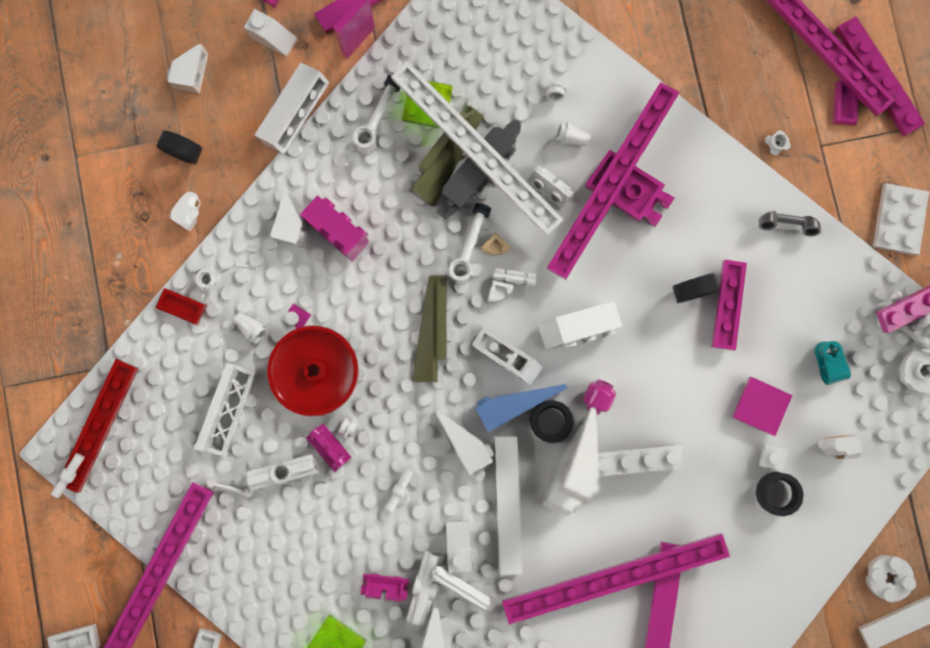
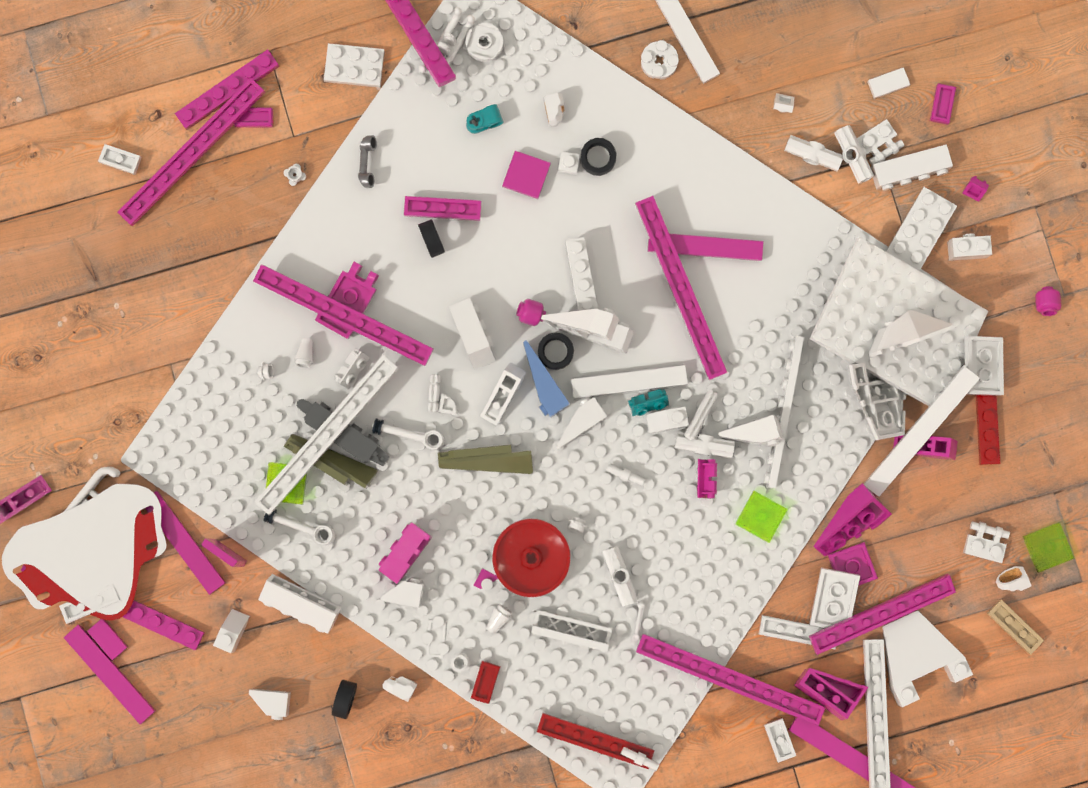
camera: 90 degrees left, 0 degrees up
(328, 447) = (595, 539): dark pink hinge -> none
(482, 536) = (657, 401): none -> teal hinge
(495, 245) = (408, 412): tan tile -> none

